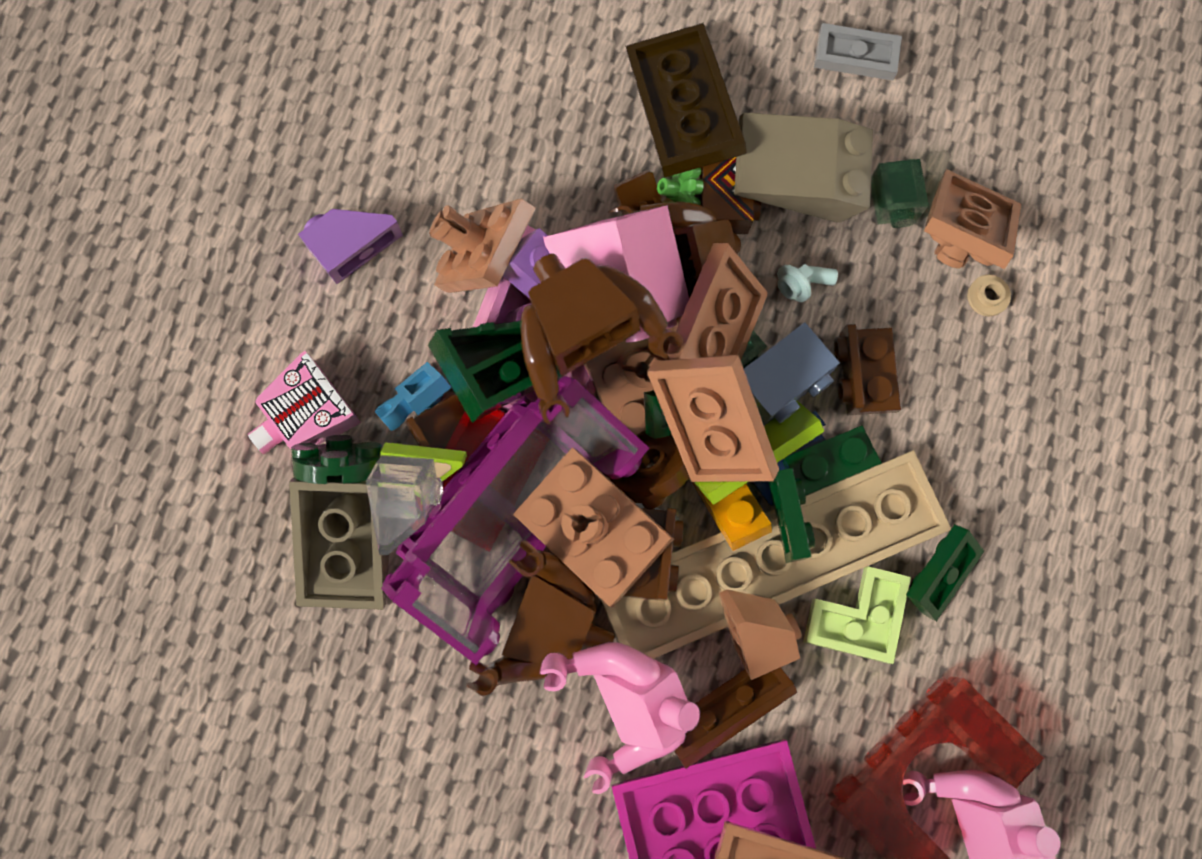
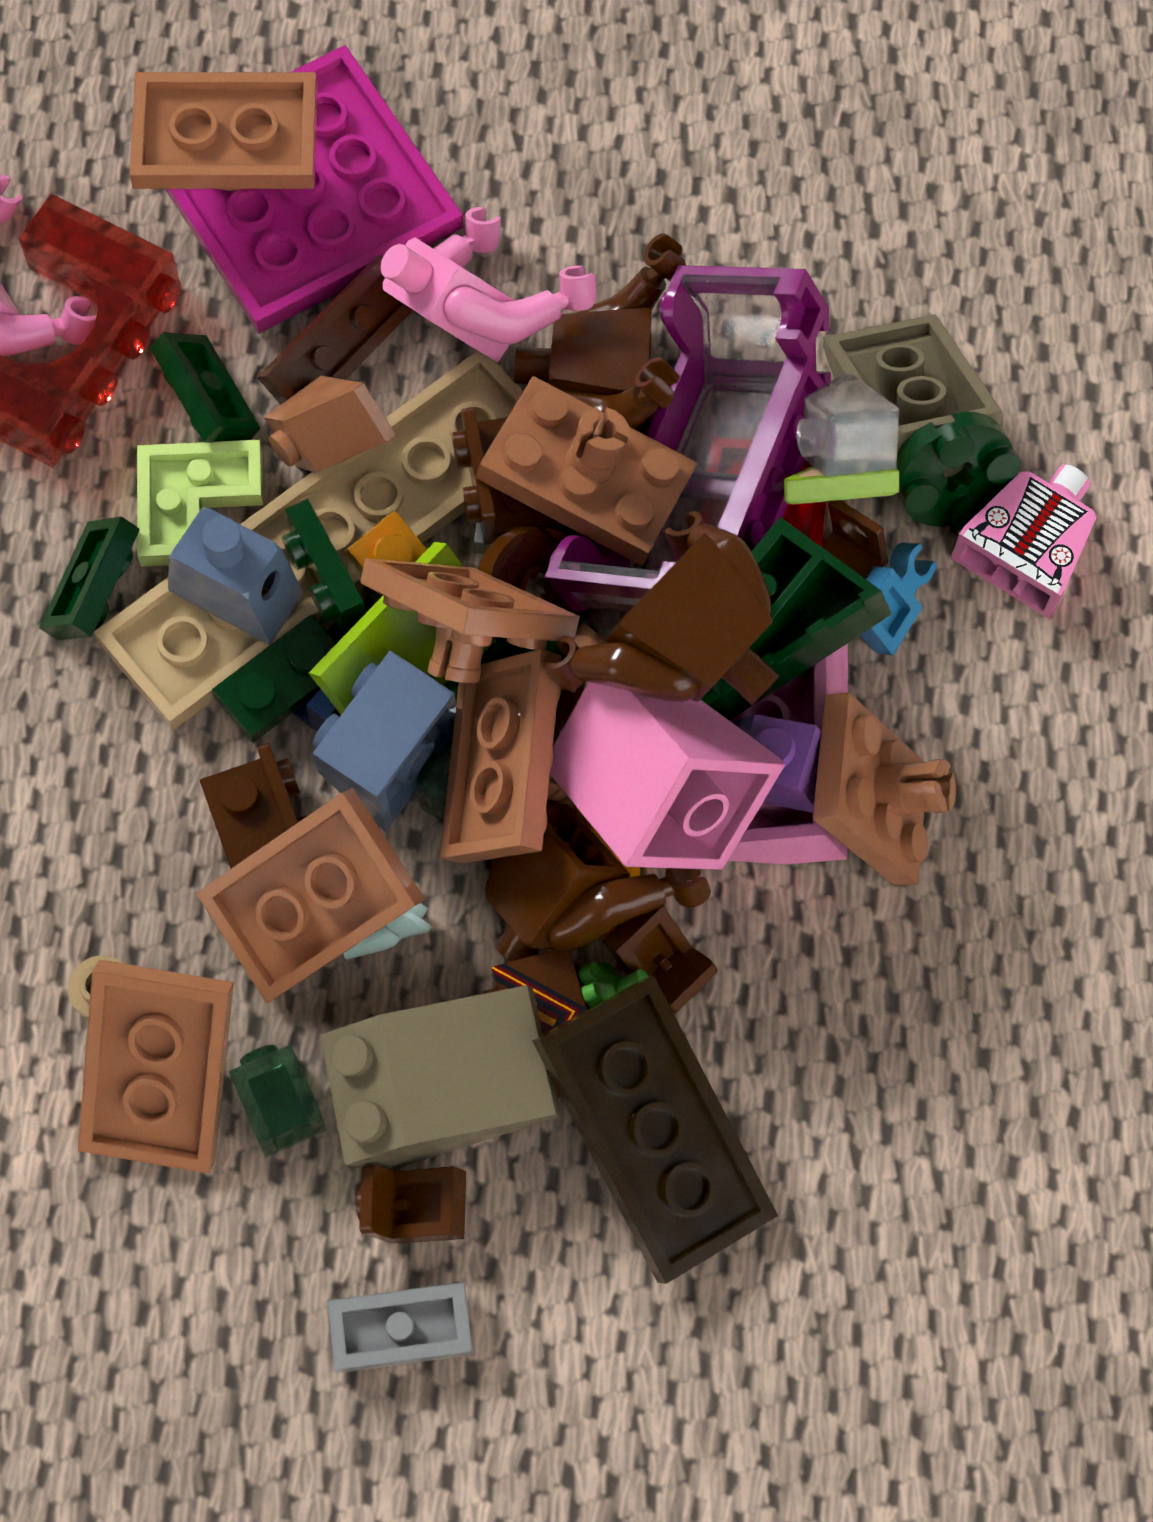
camera: 165 degrees right, 10 degrees down
(348, 239) = (1077, 777): medium lavender slope -> none
(830, 103) = (412, 1204): none -> reddish brown bracket
(835, 699) = (204, 387): none -> dark green plate
(854, 292) = (310, 895): none -> nougat plate
(856, 523) = (224, 571): none -> sand blue torso

